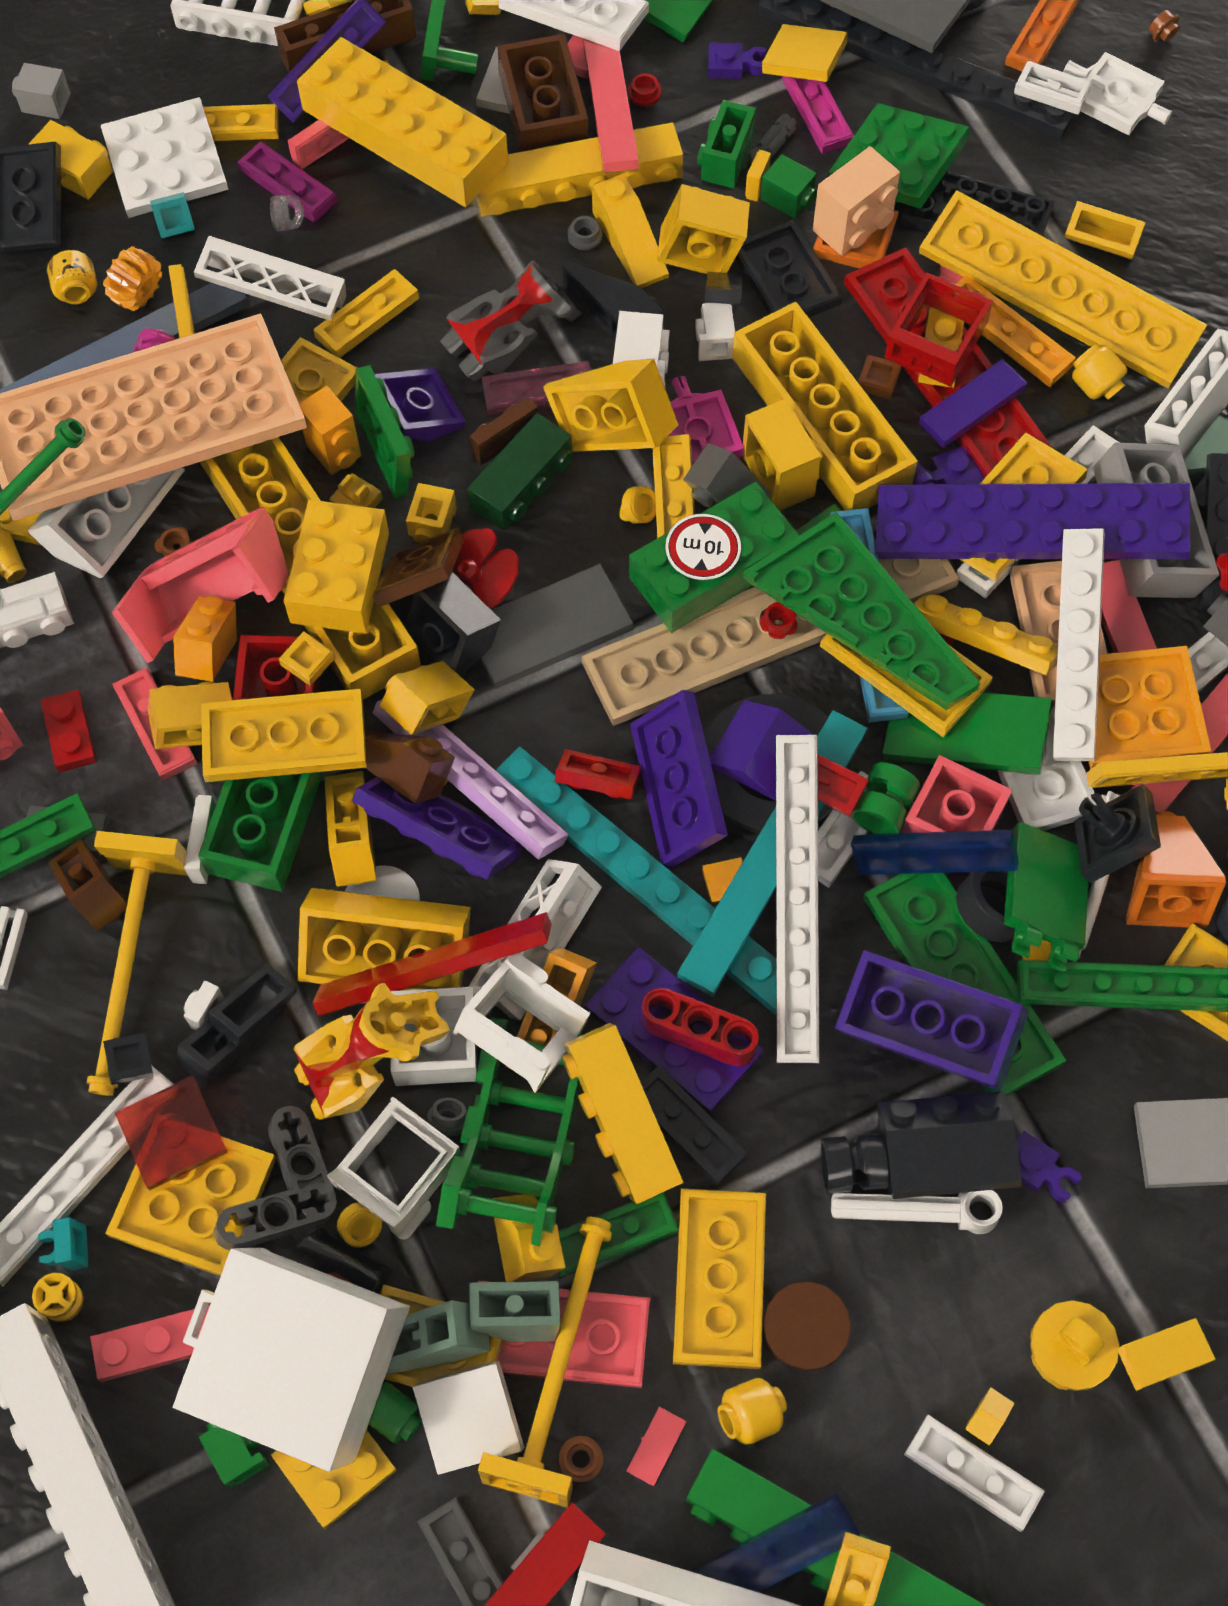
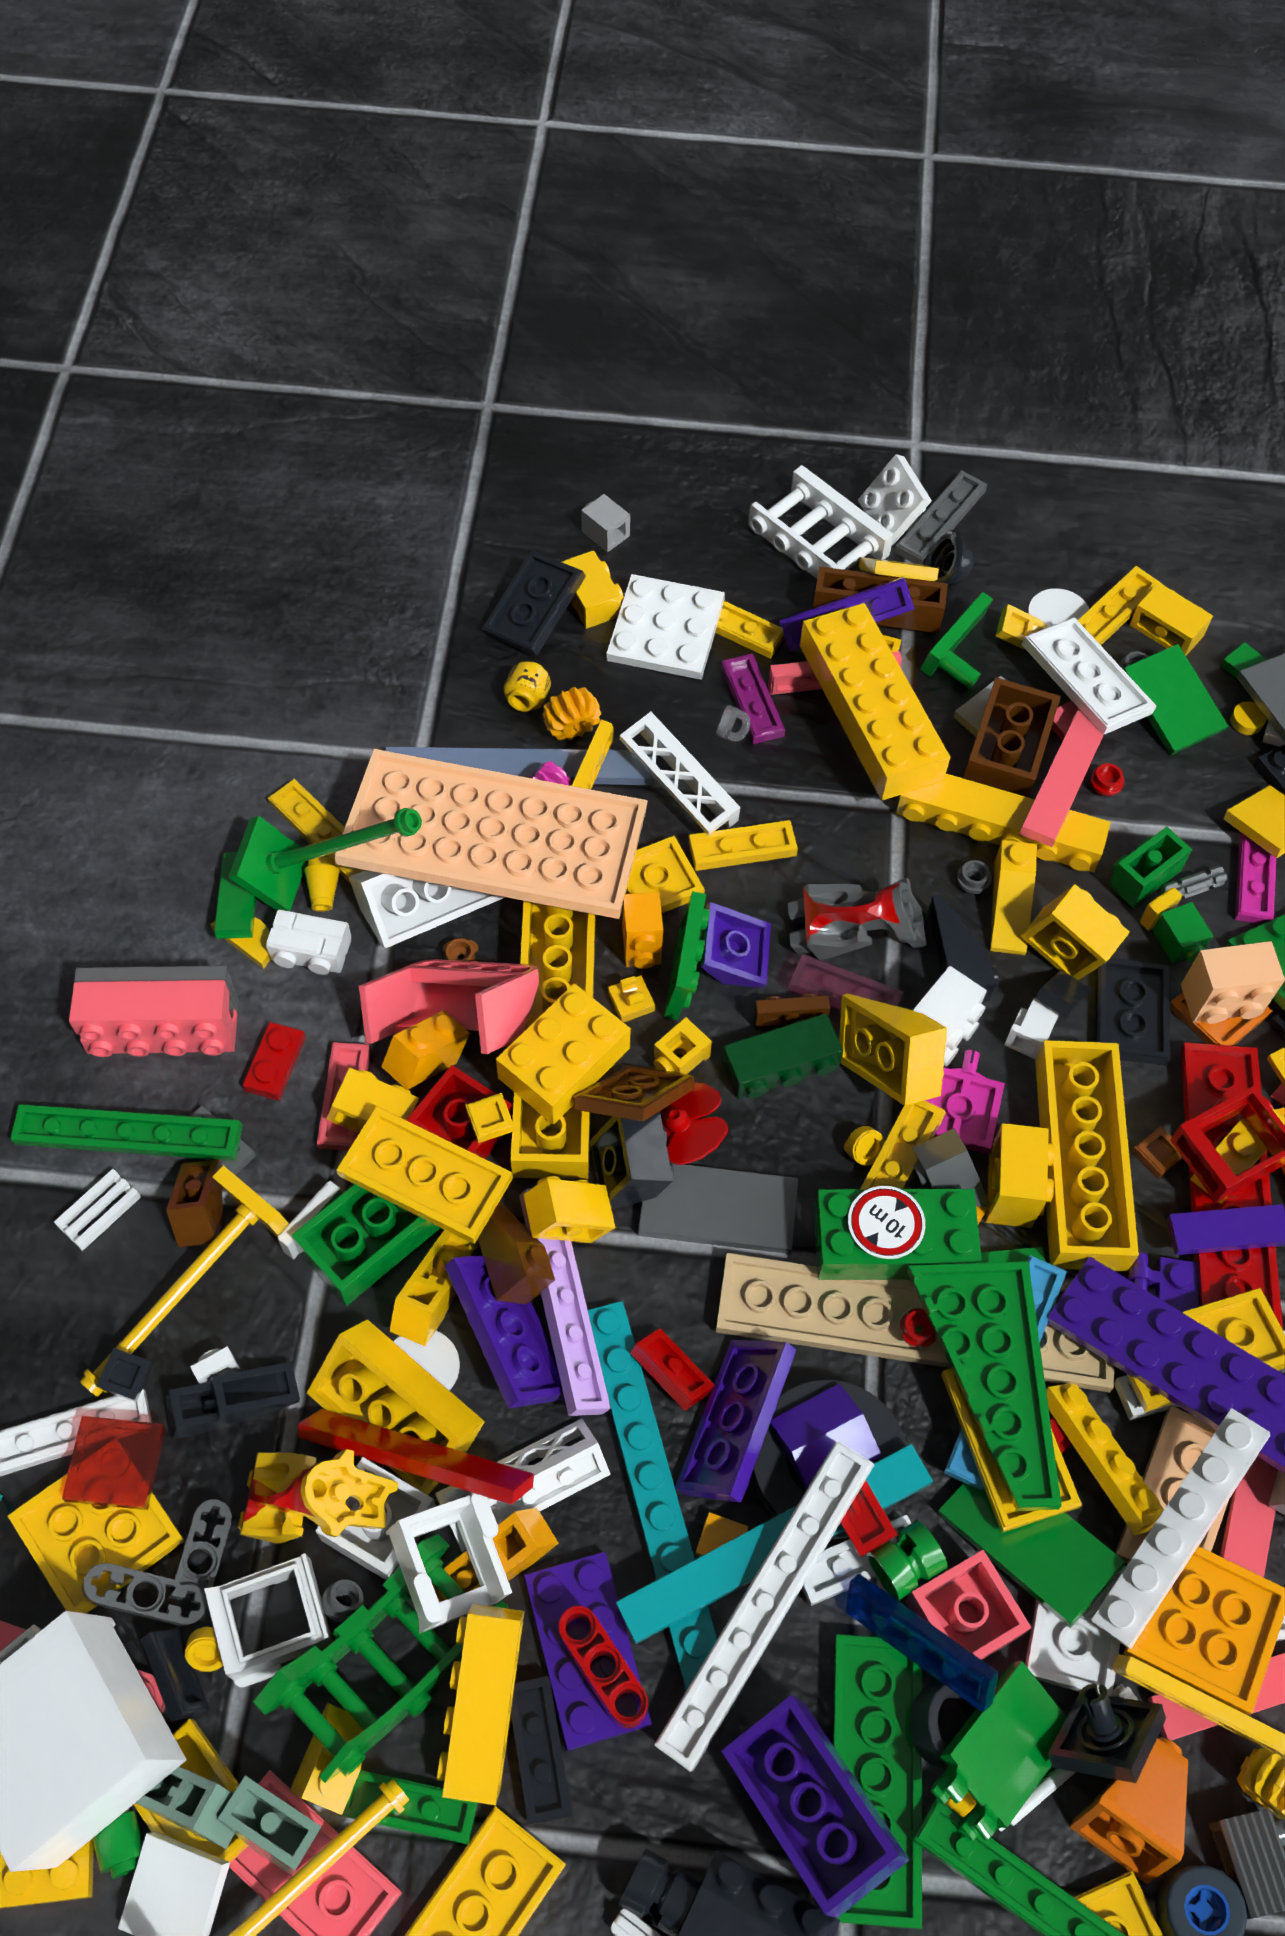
camera: 30 degrees right, 5 degrees down
(172, 215) = (639, 677): teal tile -> none
(729, 60) = (1202, 792): dark purple plate -> none

